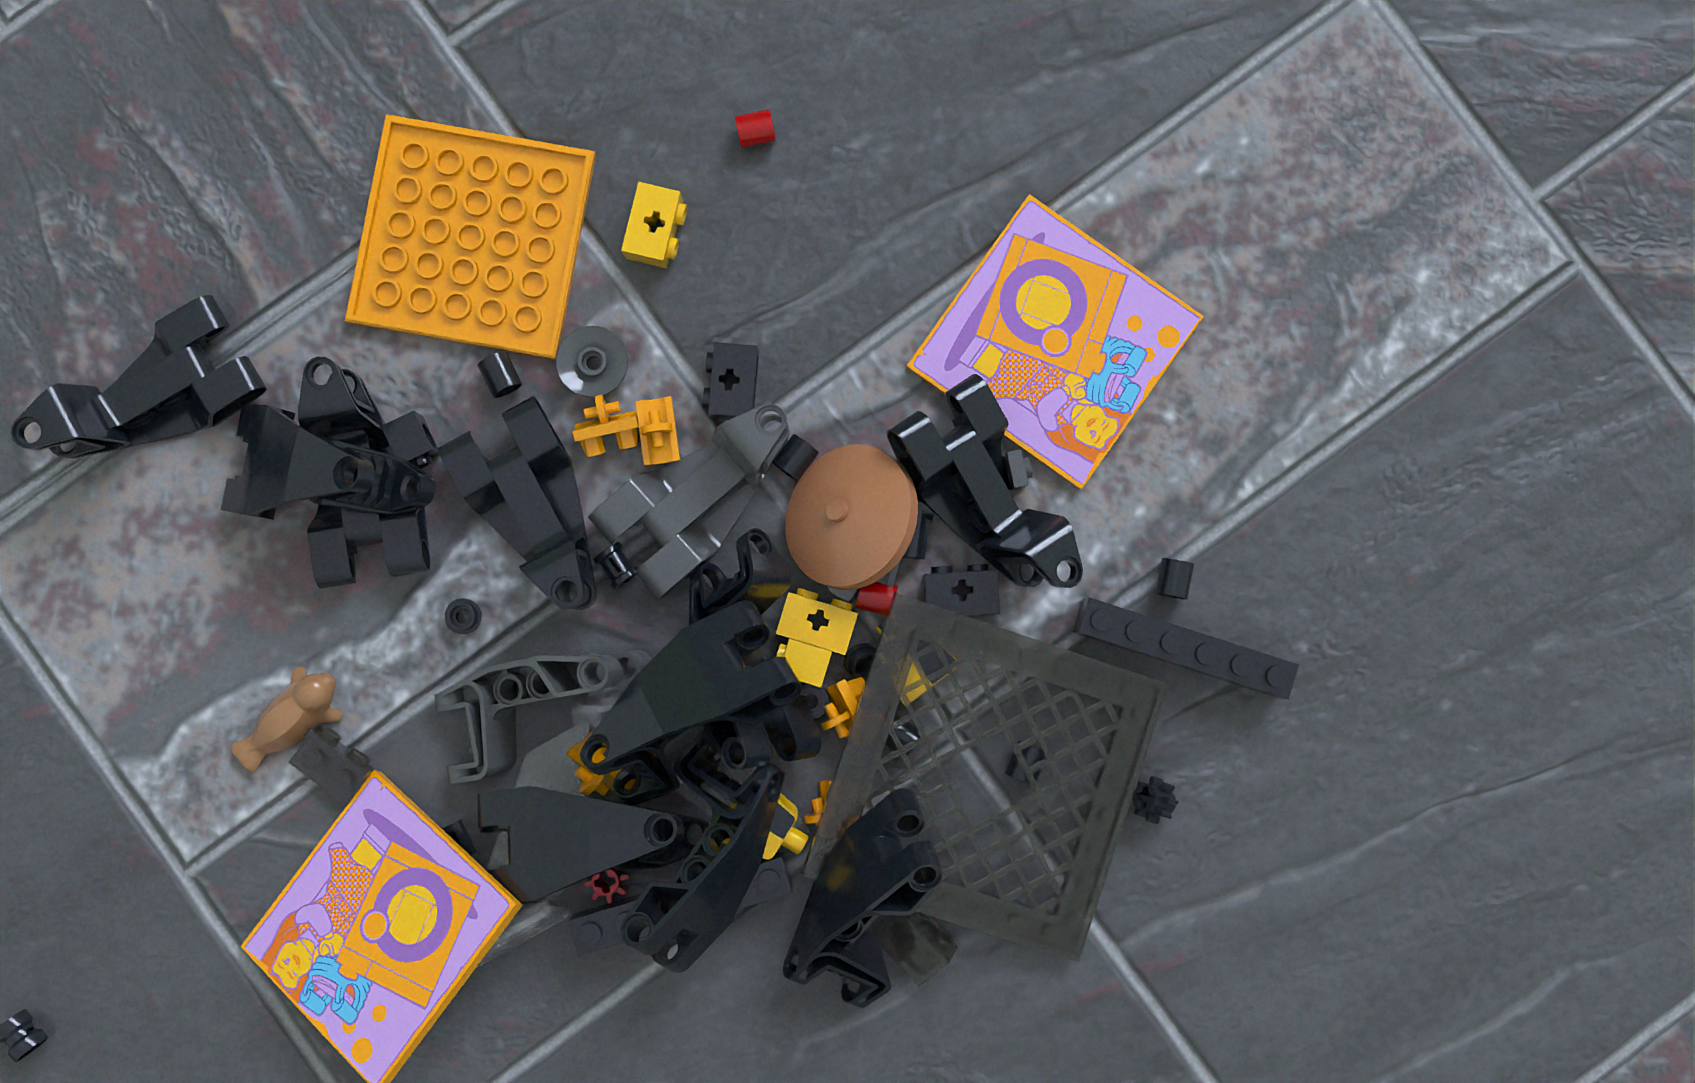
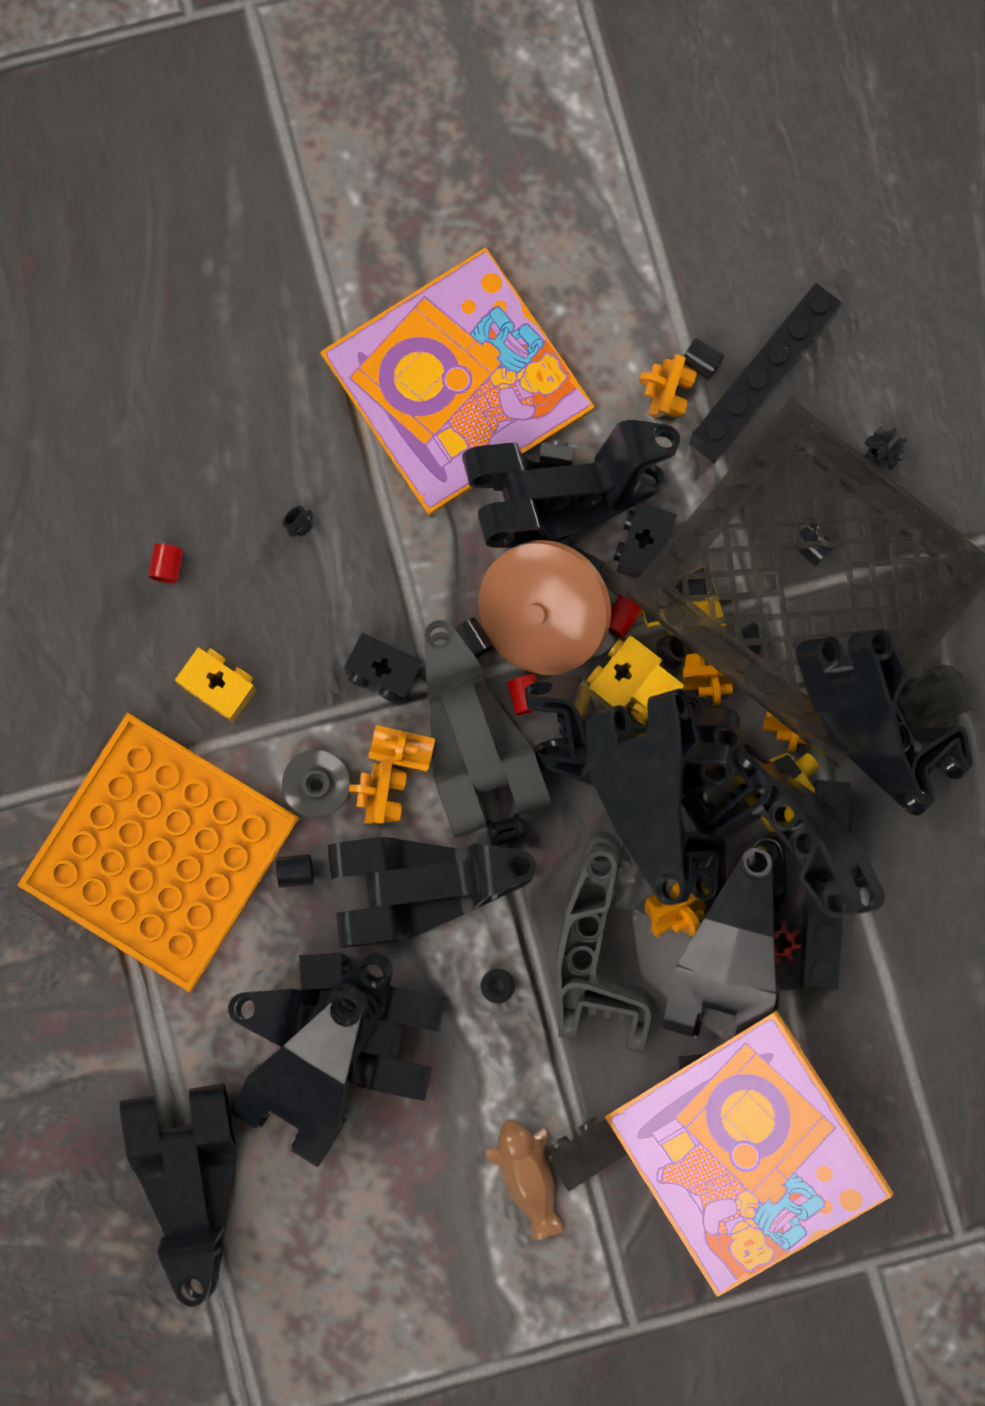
camera: 65 degrees left, 5 degrees down
(767, 524) = (516, 689): none -> red beam
(847, 241) = (298, 521): none -> black plate
(1131, 548) = (662, 385): none -> light orange hips

